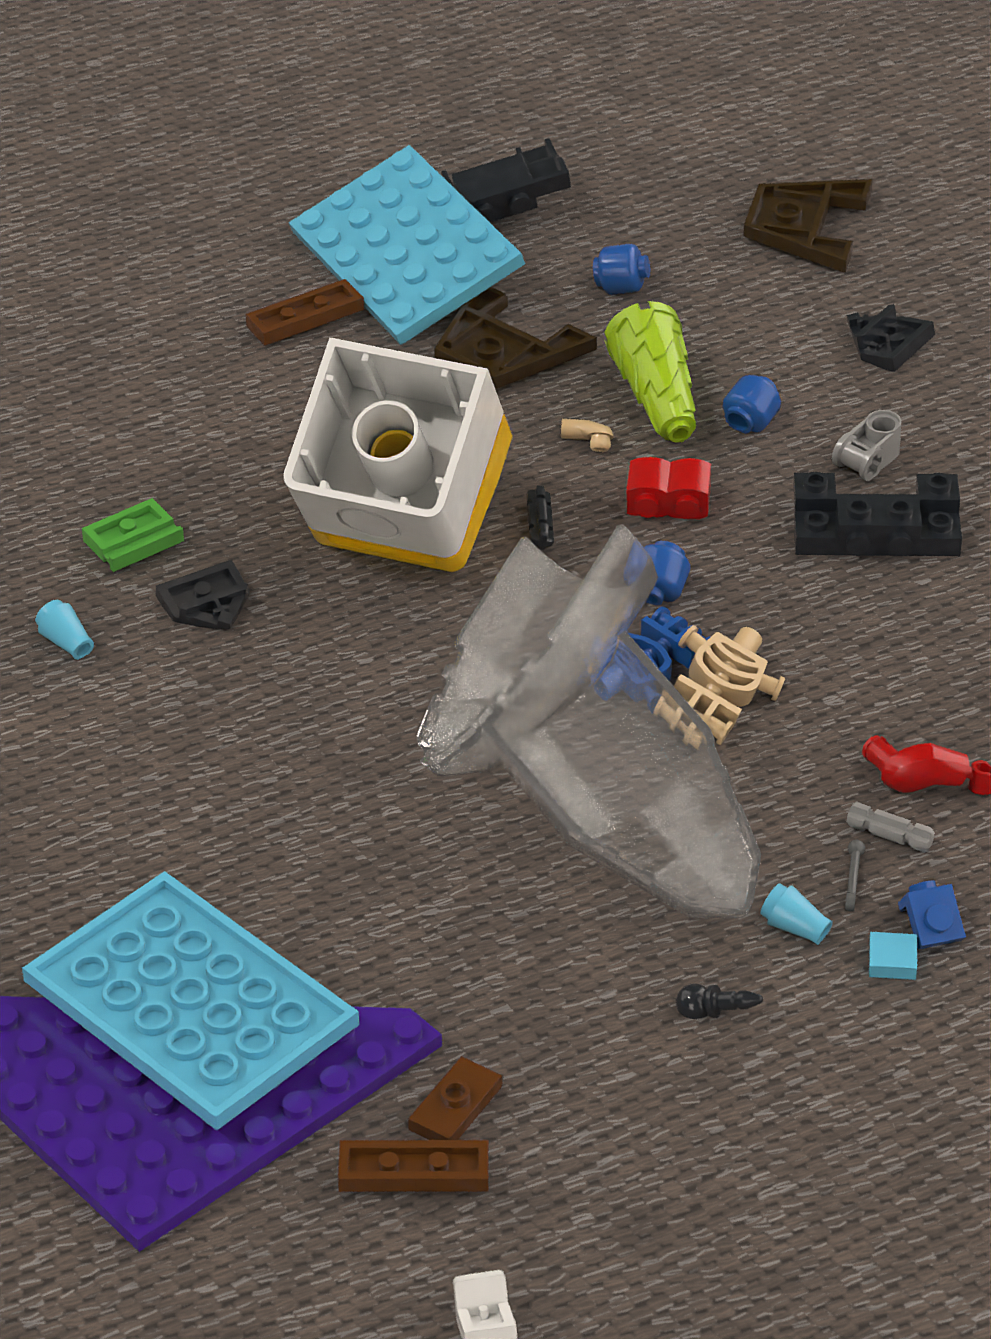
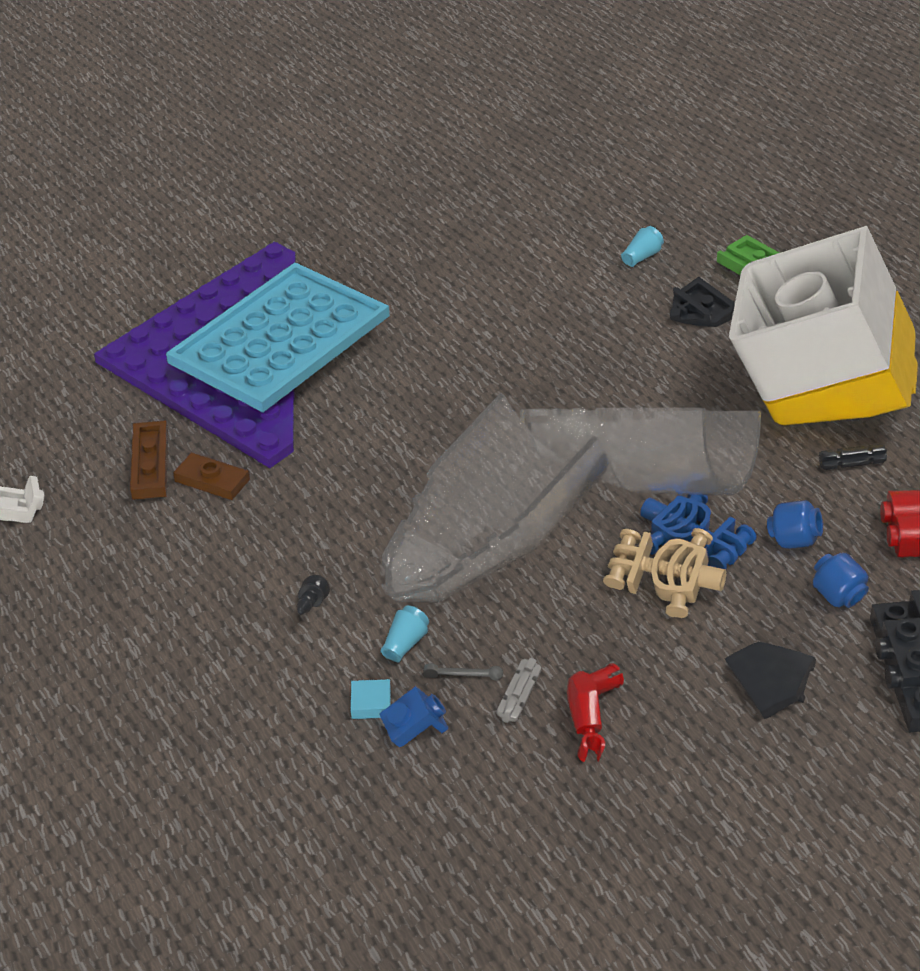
camera: 85 degrees right, 0 degrees up
(754, 554) = (840, 580): none -> blue head
(888, 631) = (771, 675): none -> black slope

